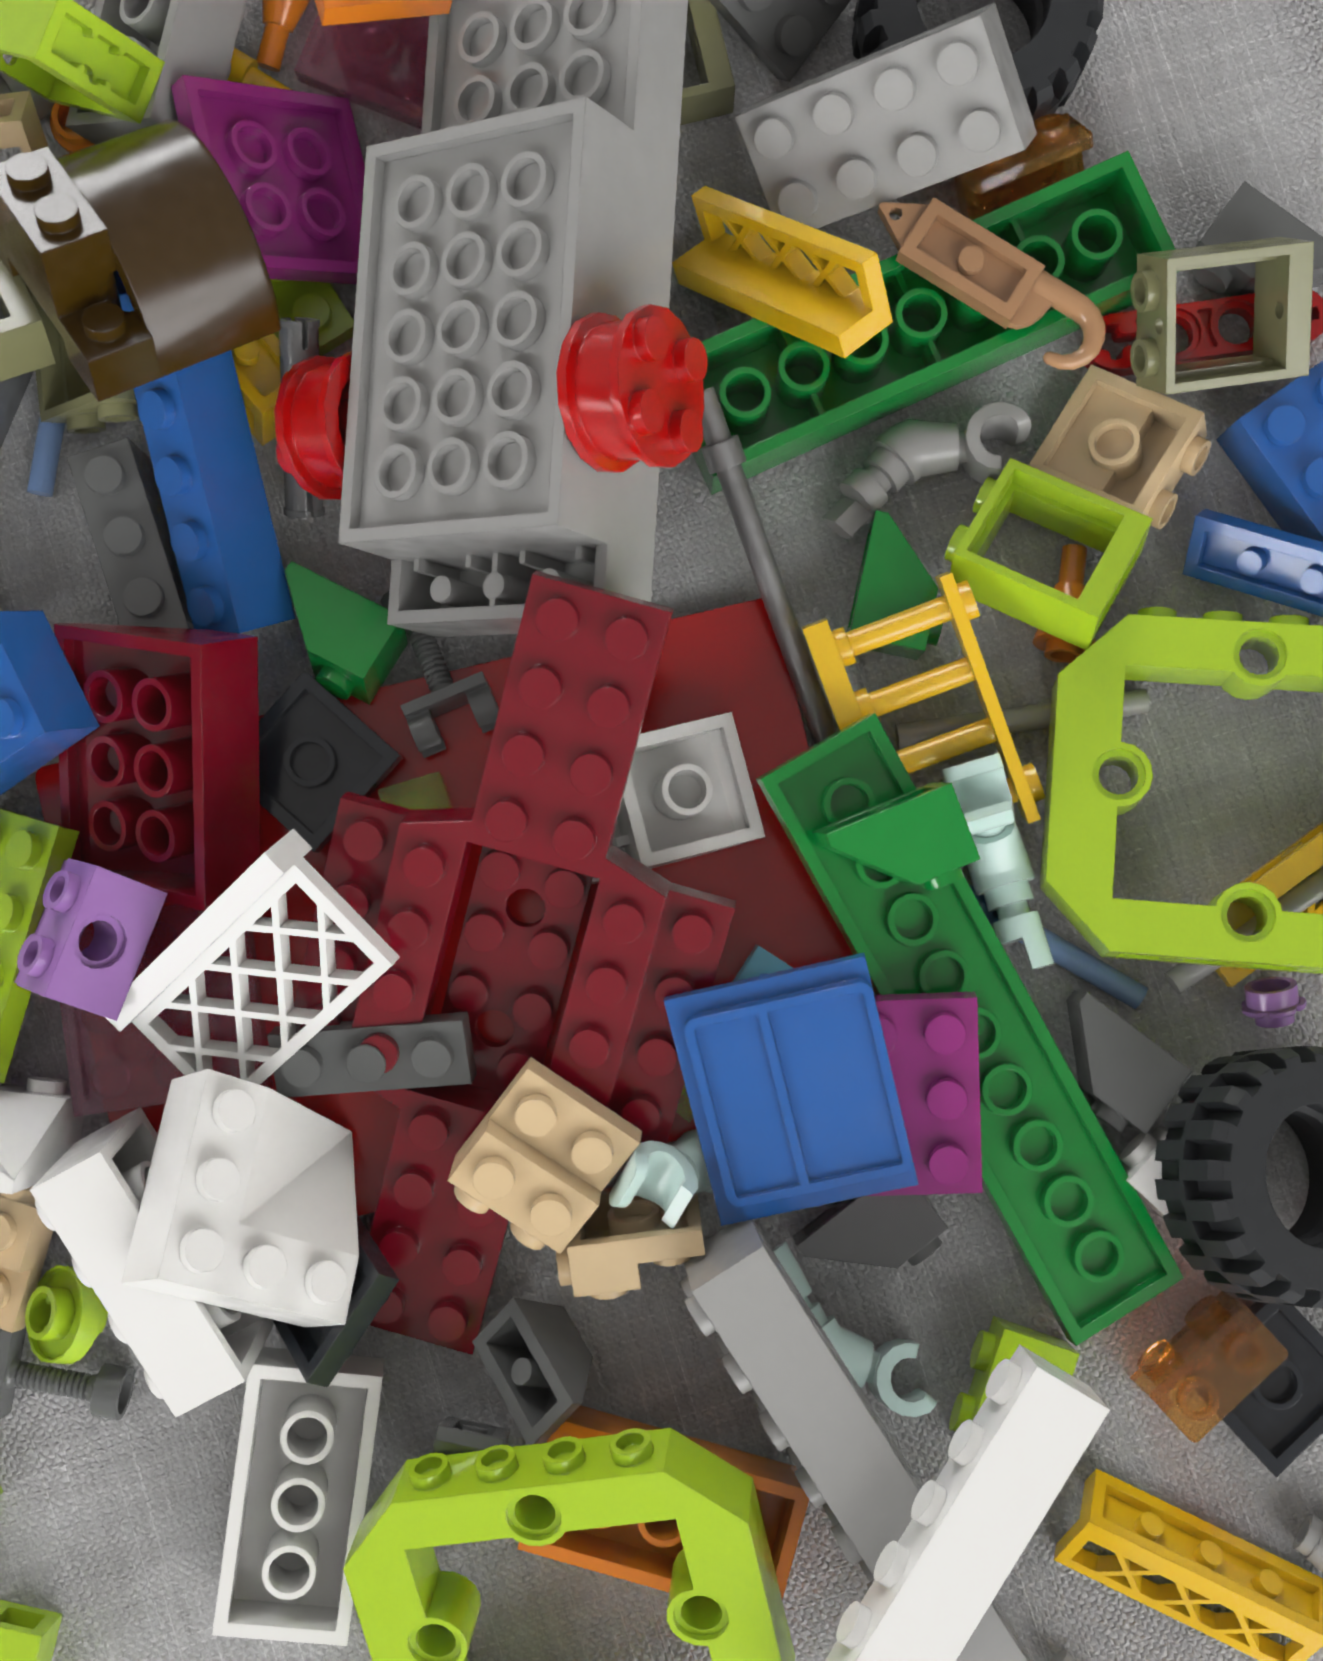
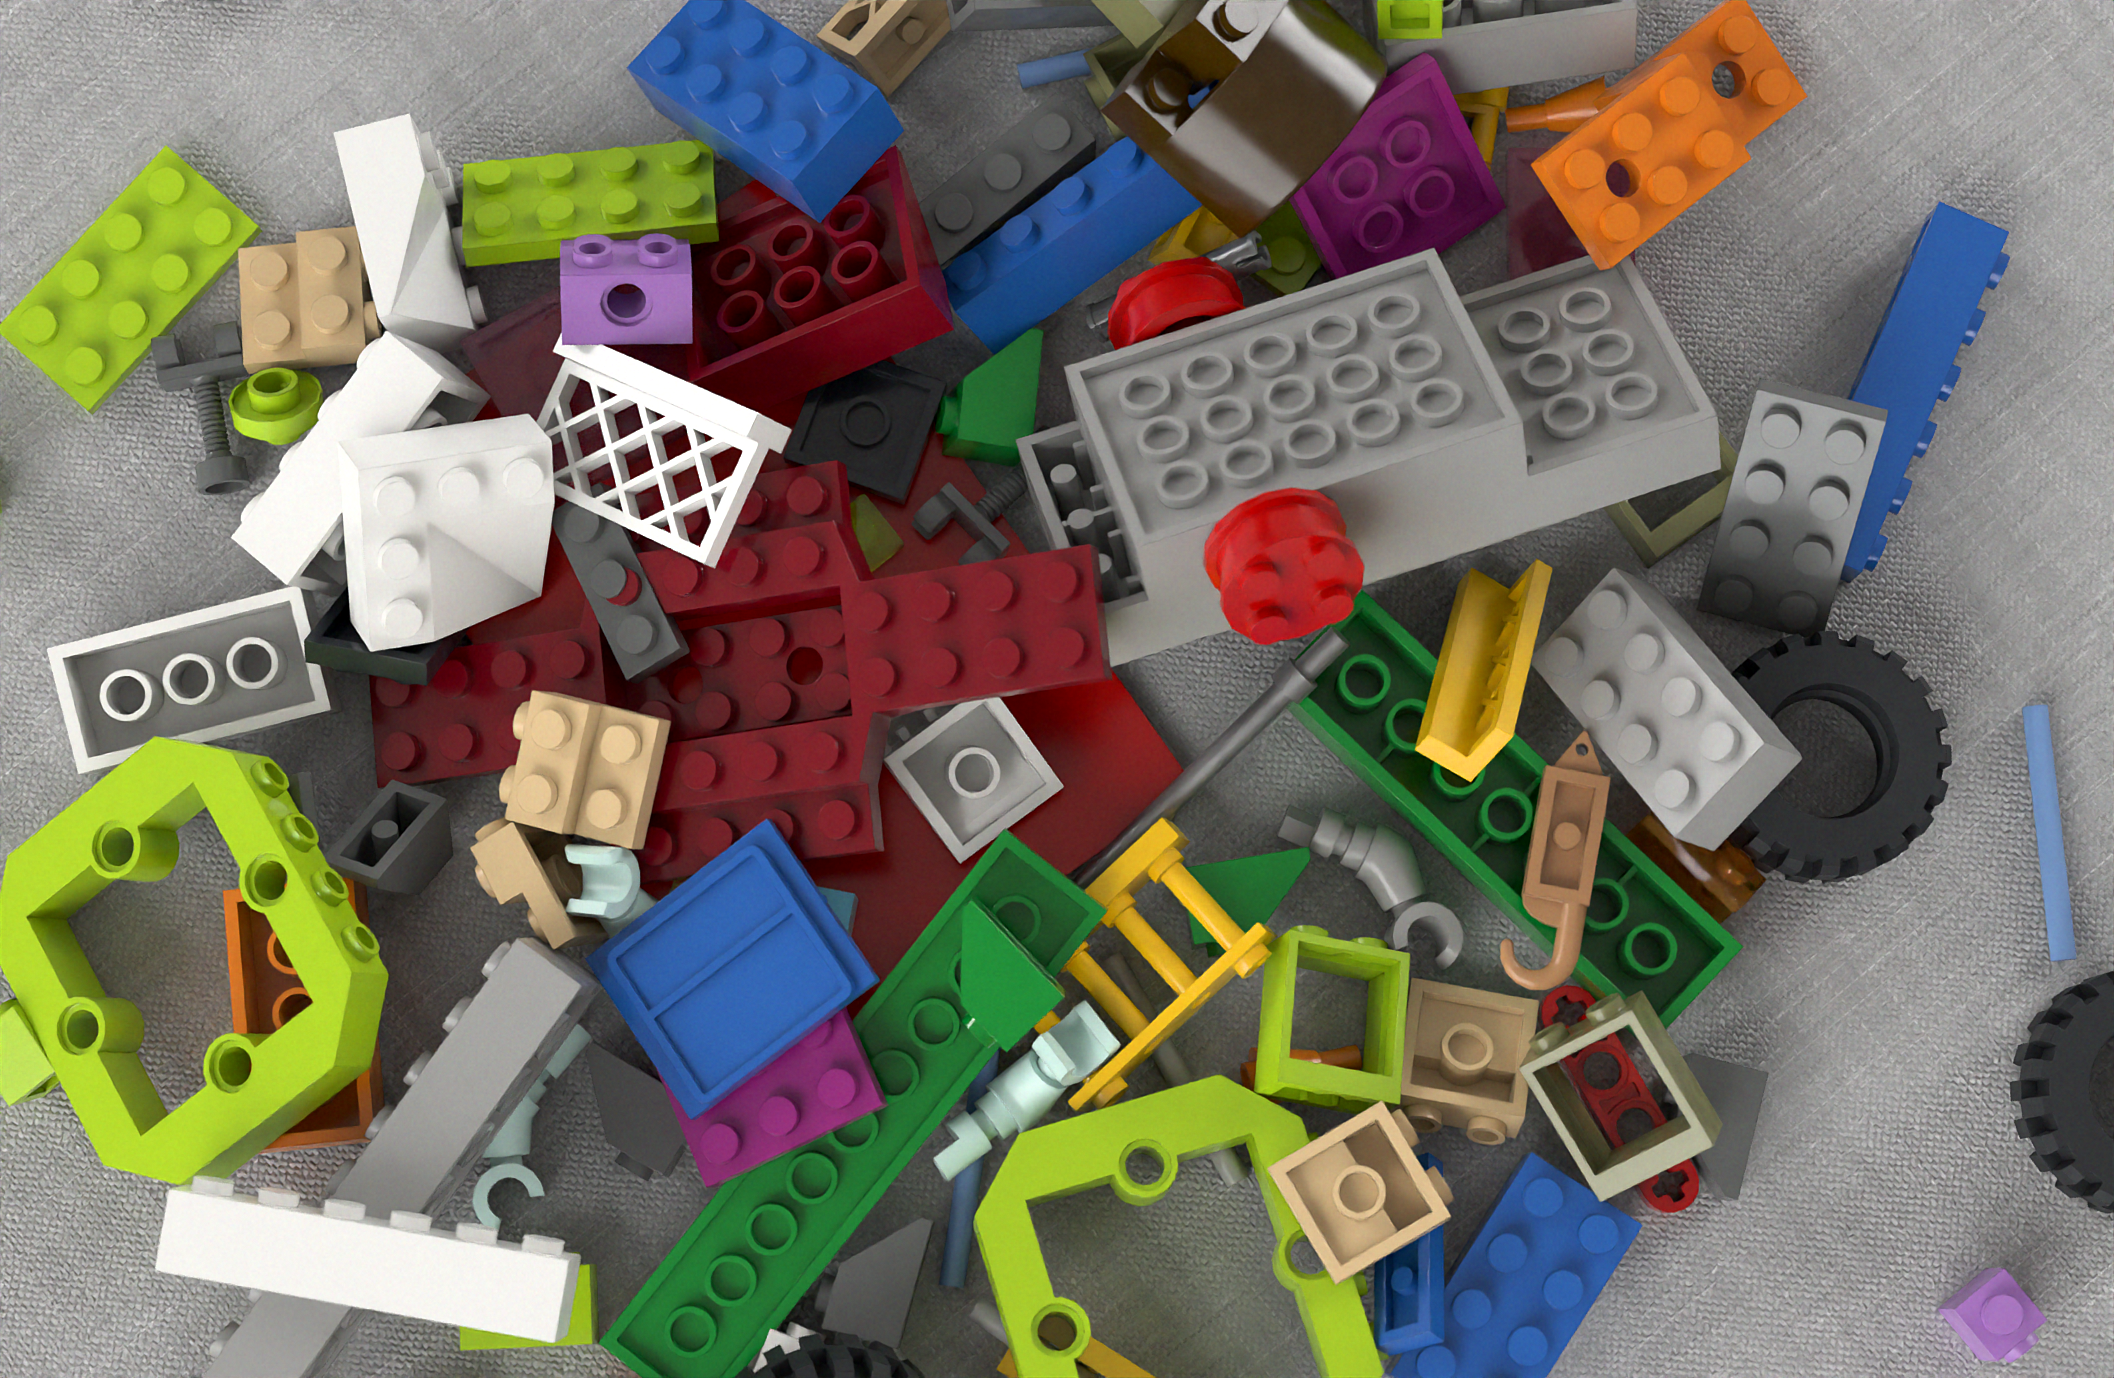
camera: 65 degrees right, 5 degrees down
(1227, 581) = (1362, 1191): none -> tan plate

